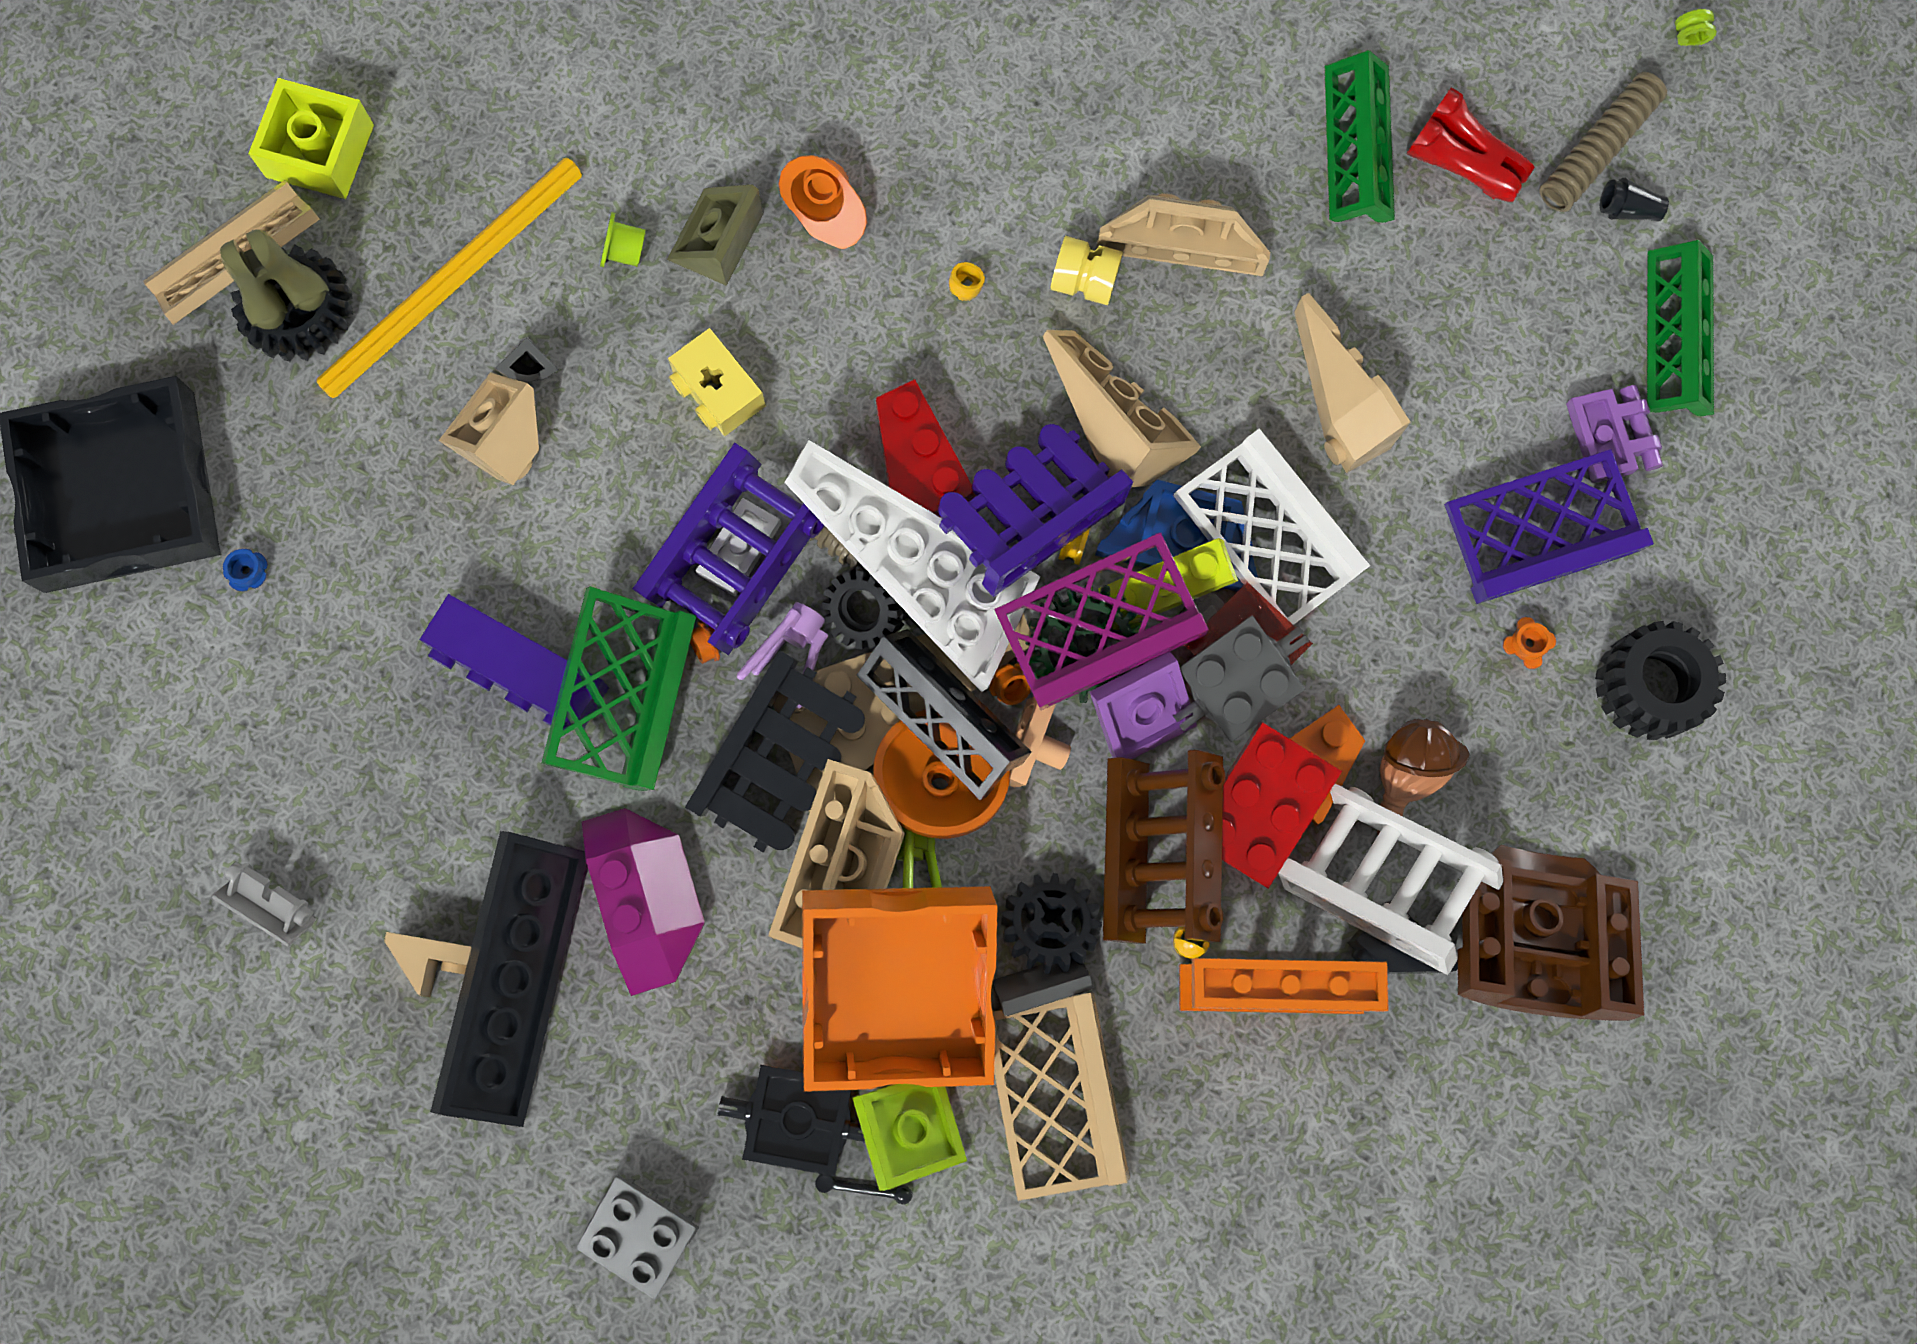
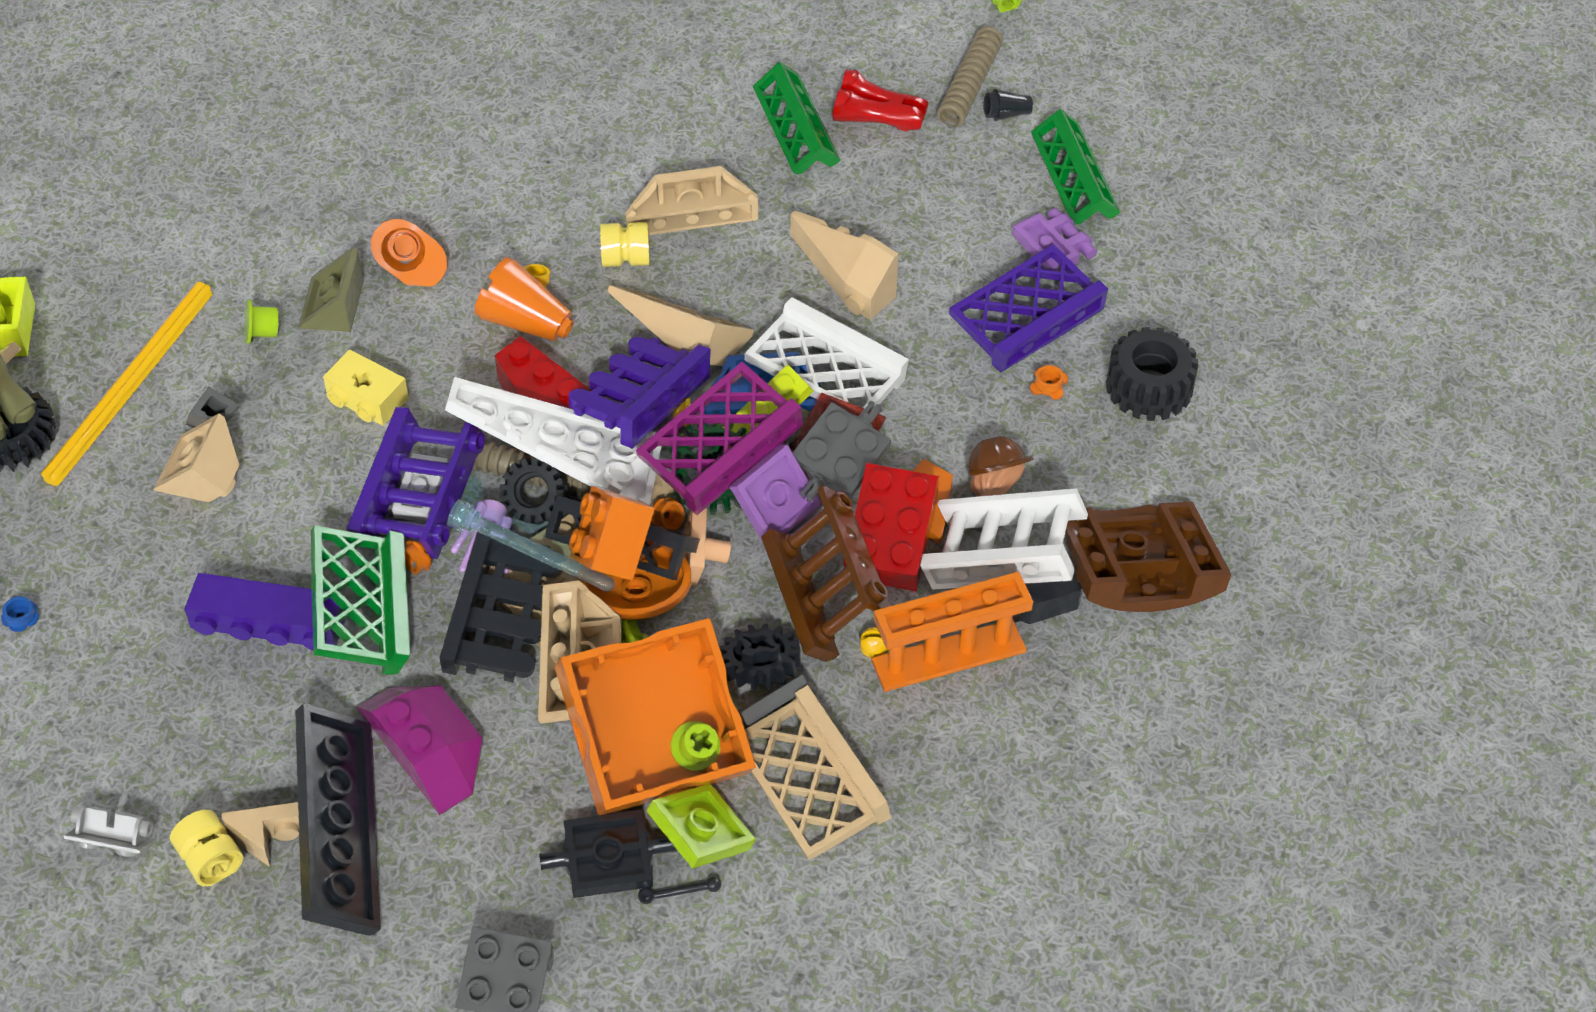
camera: 15 degrees left, 25 degrees down
(356, 947) = (206, 847): none -> light yellow wheel
(767, 641) = (465, 517): none -> clear light blue piece
(926, 723) = (610, 532): none -> orange slope
(936, 324) = (522, 303): none -> orange cone
(937, 1024) = (695, 746): none -> lime piece

